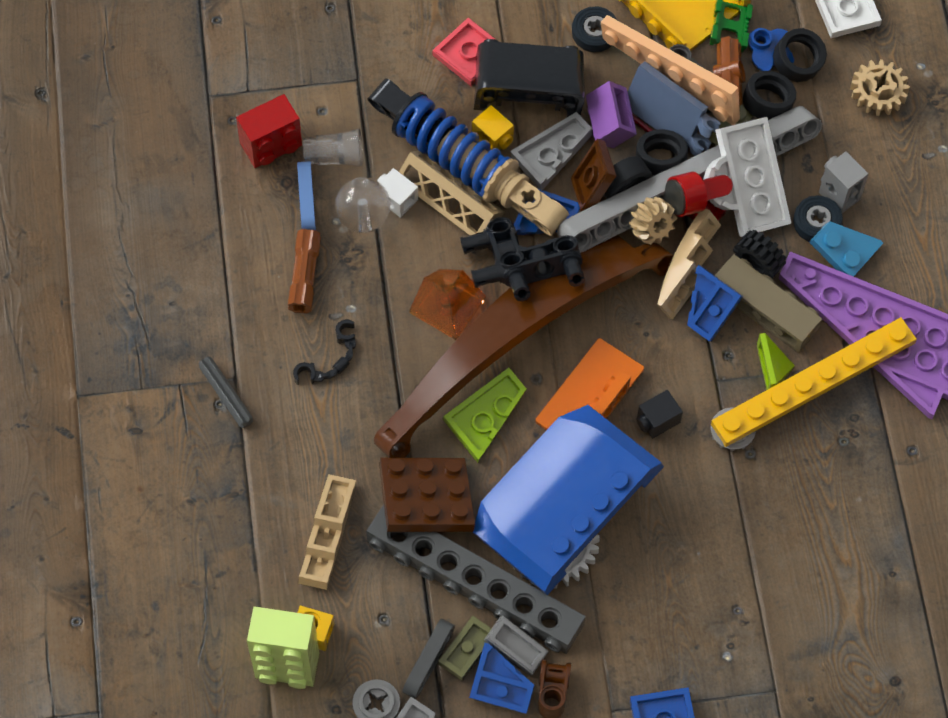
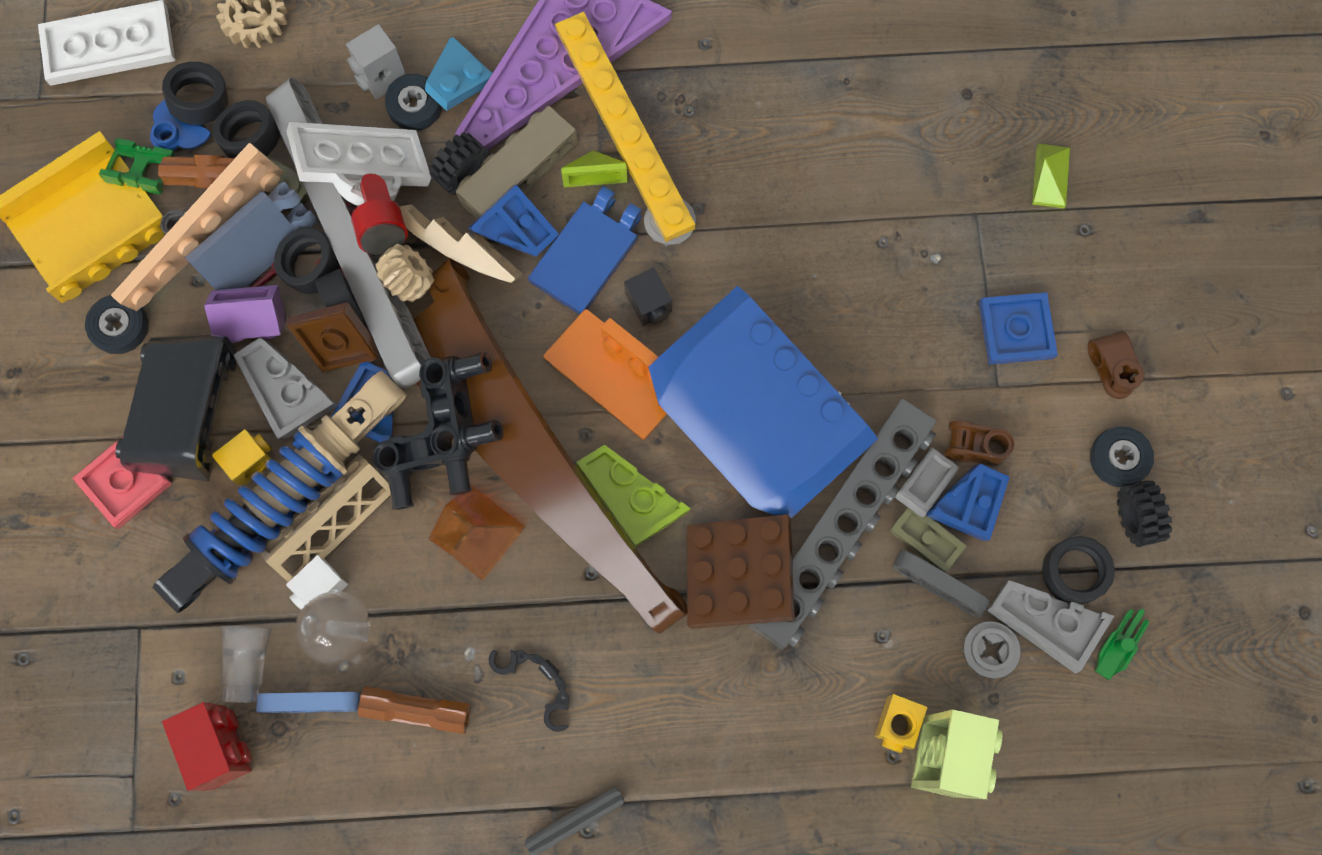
camera: 85 degrees left, 10 degrees up
(327, 531) = (773, 697): tan slope -> none
(696, 366) = (586, 253): none -> blue tile

